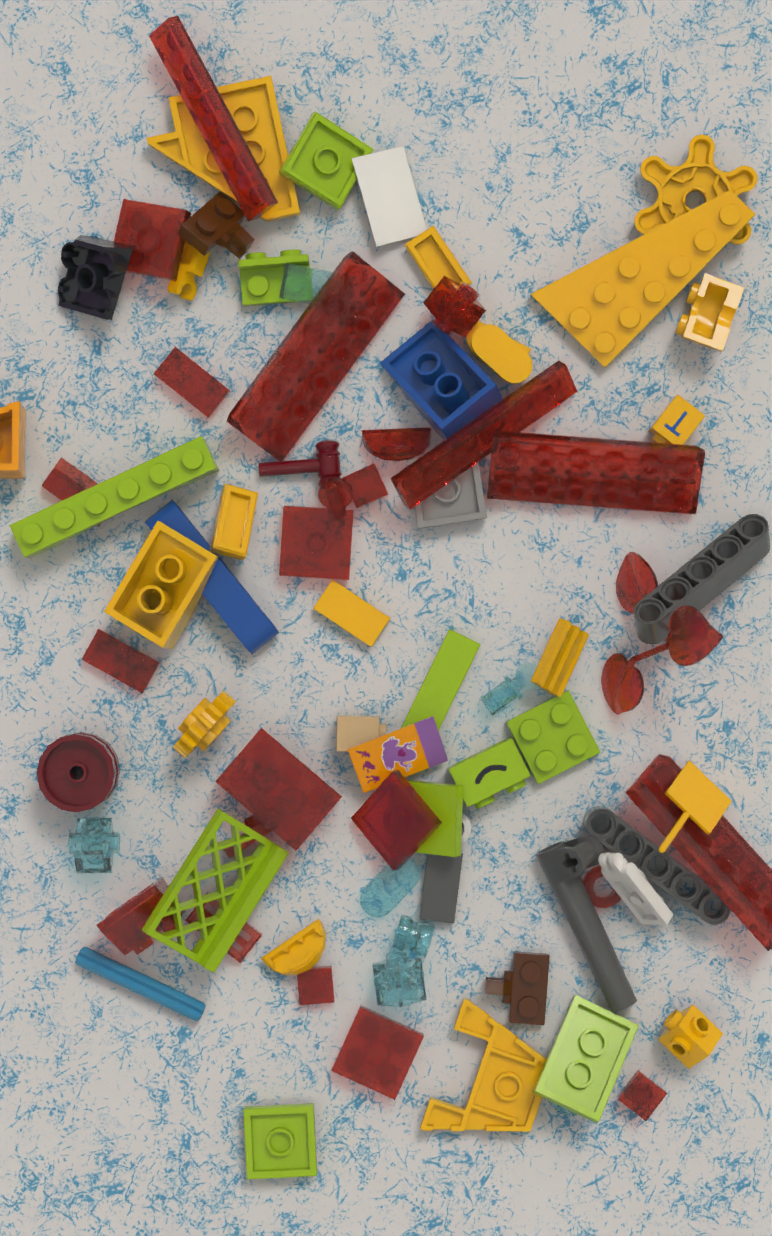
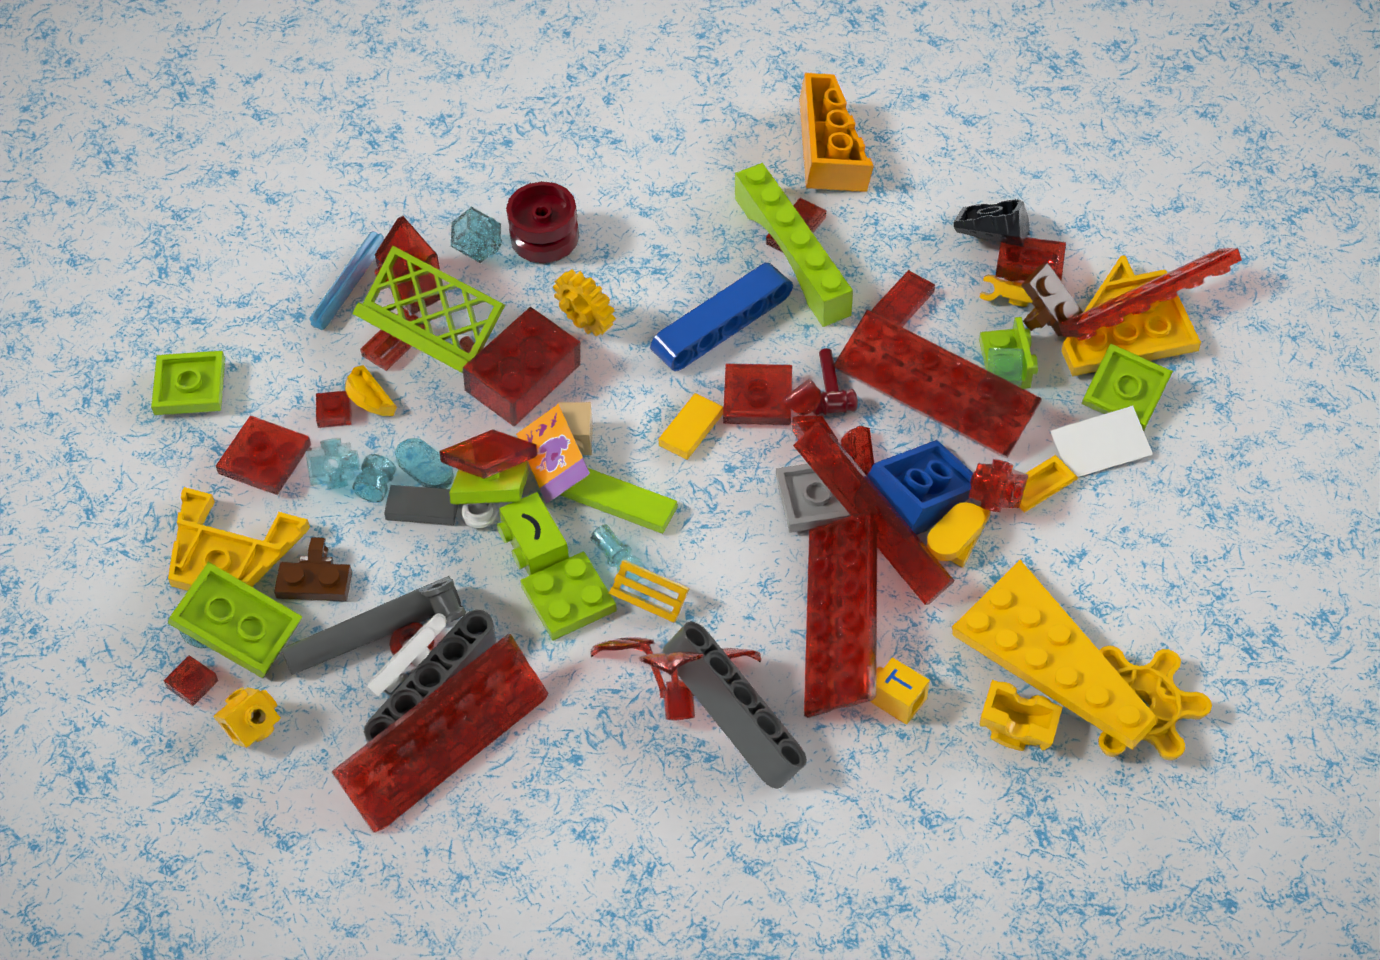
camera: 90 degrees right, 35 degrees down
(120, 661) = (643, 259): clear red tile -> none
(162, 586) = (707, 267): yellow slope -> none
(233, 522) = (774, 327): yellow tile -> none
(697, 799) = (499, 716): yellow piece -> none

